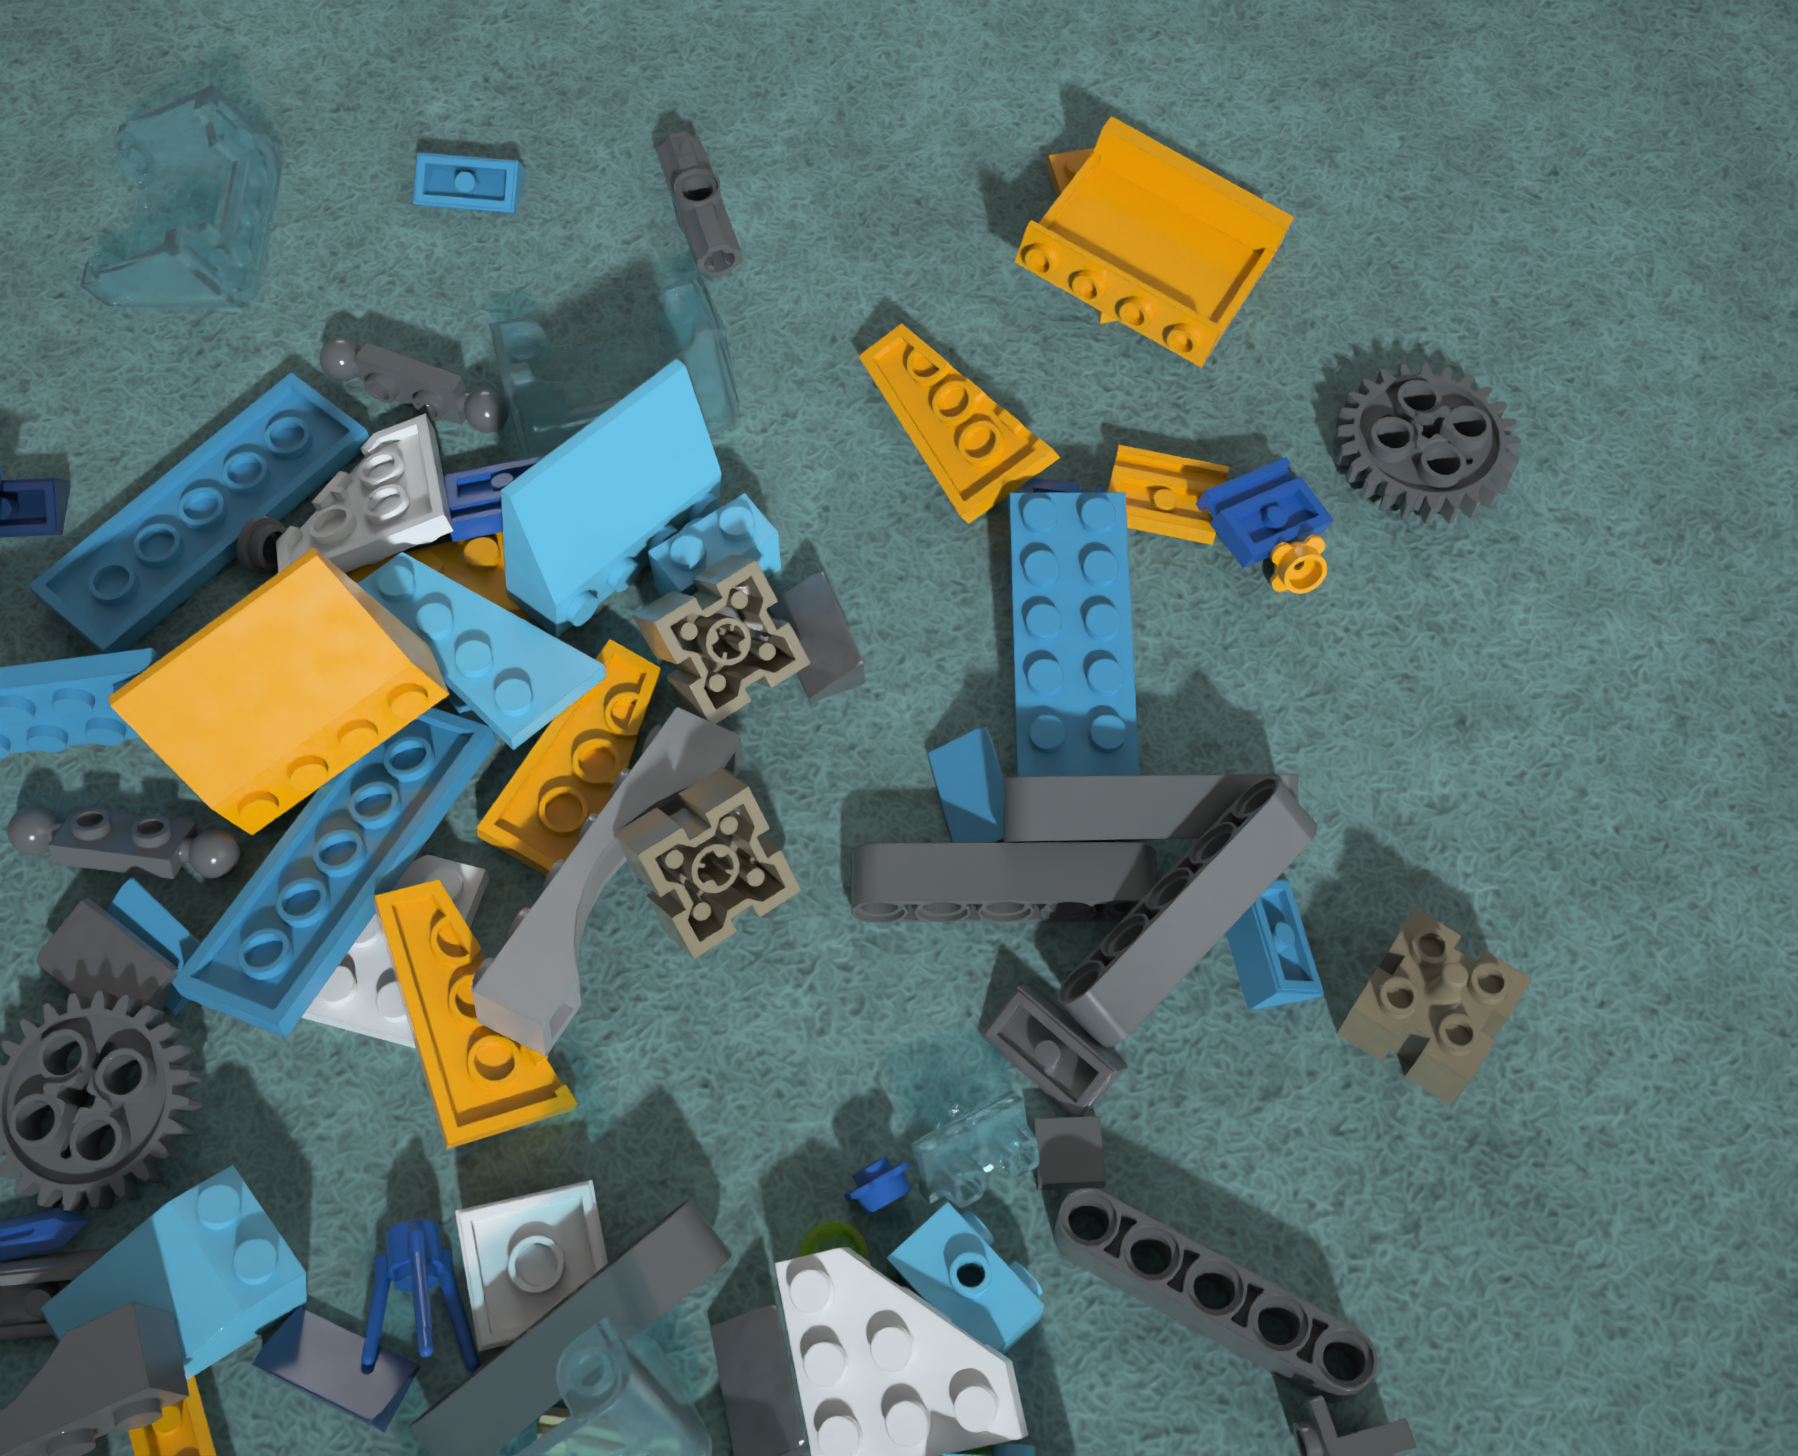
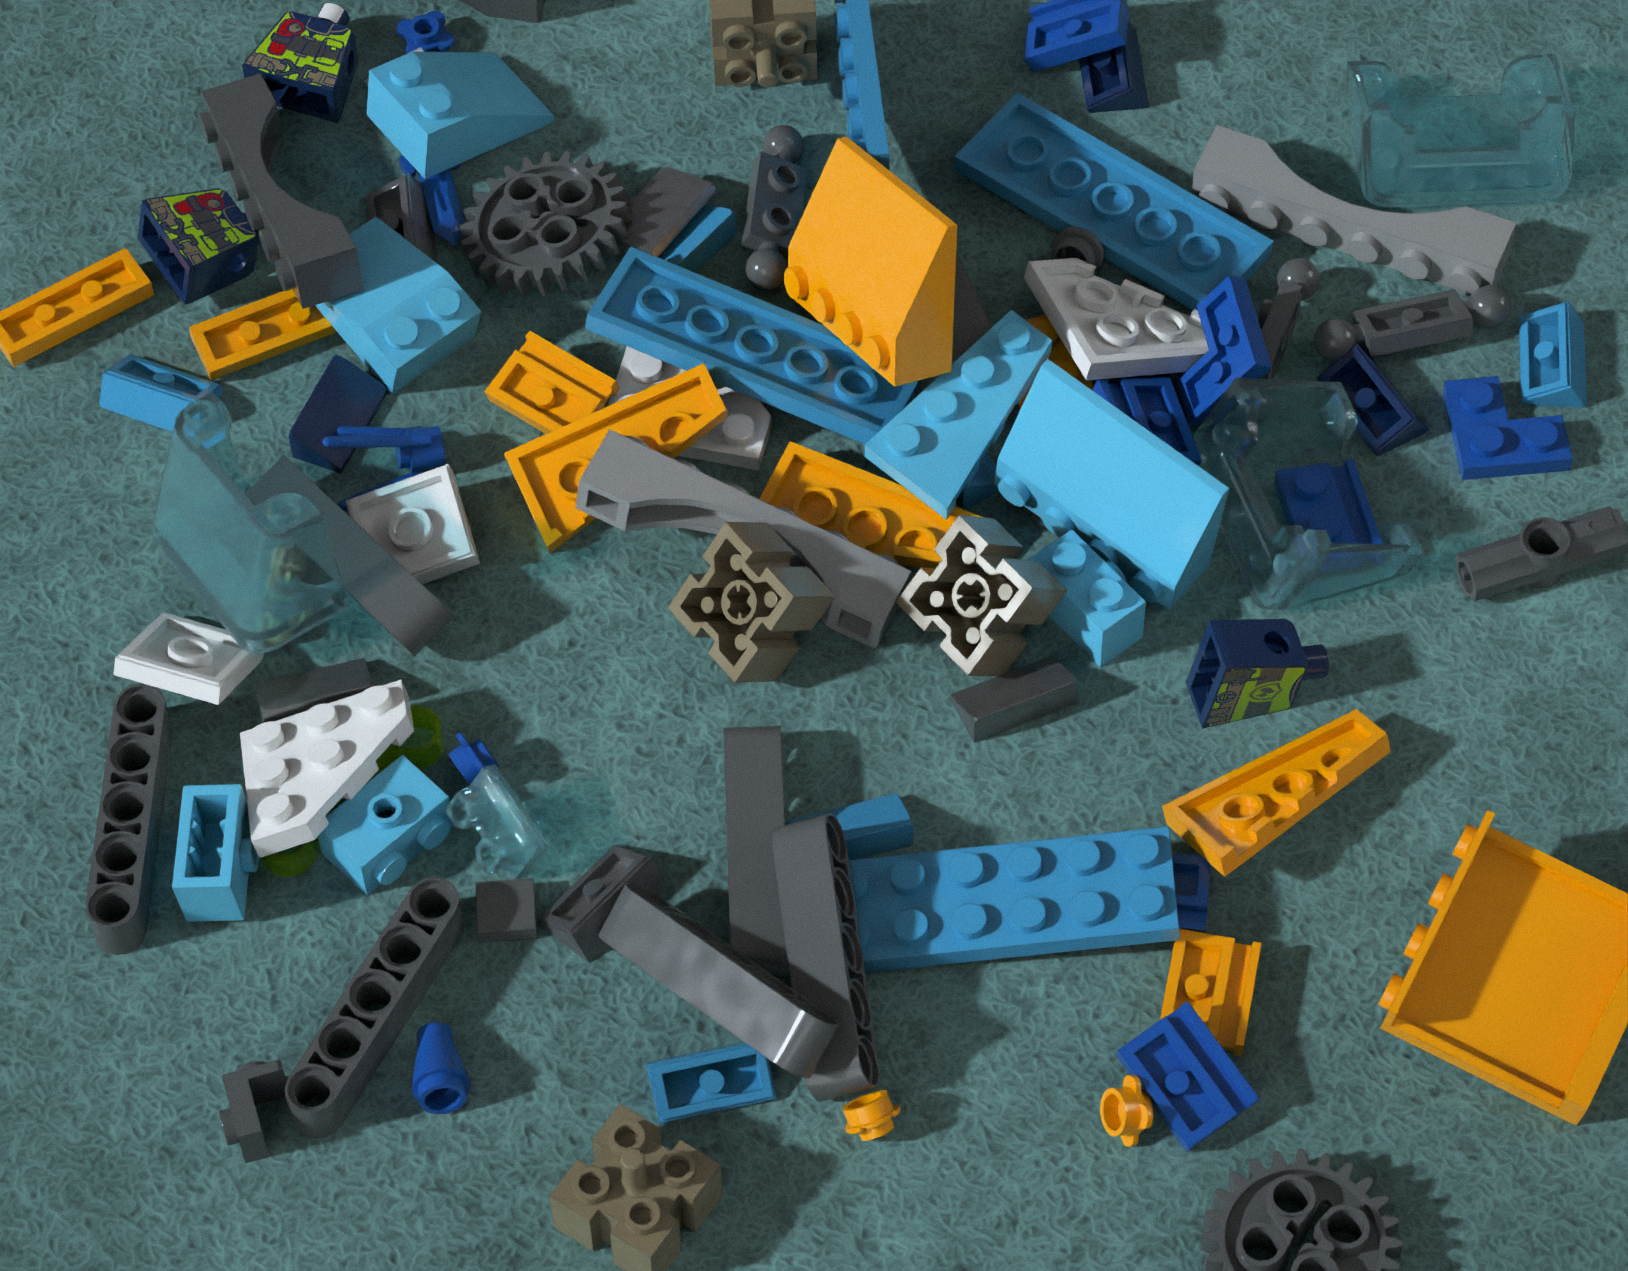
camera: 90 degrees right, 5 degrees down
(212, 383) = (1448, 247): none -> light grey arch
(349, 1095) = (549, 386): none -> light orange plate
(414, 275) = (1413, 323): none -> dark grey plate
(442, 392) = (1233, 345): none -> blue plate
(467, 325) = (1381, 410): none -> dark blue slope
(556, 238) = (1499, 447): none -> blue plate
(625, 354) = (1329, 501): none -> blue plate
(814, 403) = (1250, 669): none -> dark blue torso
(1283, 1223) = (439, 1074): none -> blue cone
(1331, 778) = (870, 1115): none -> light orange plate

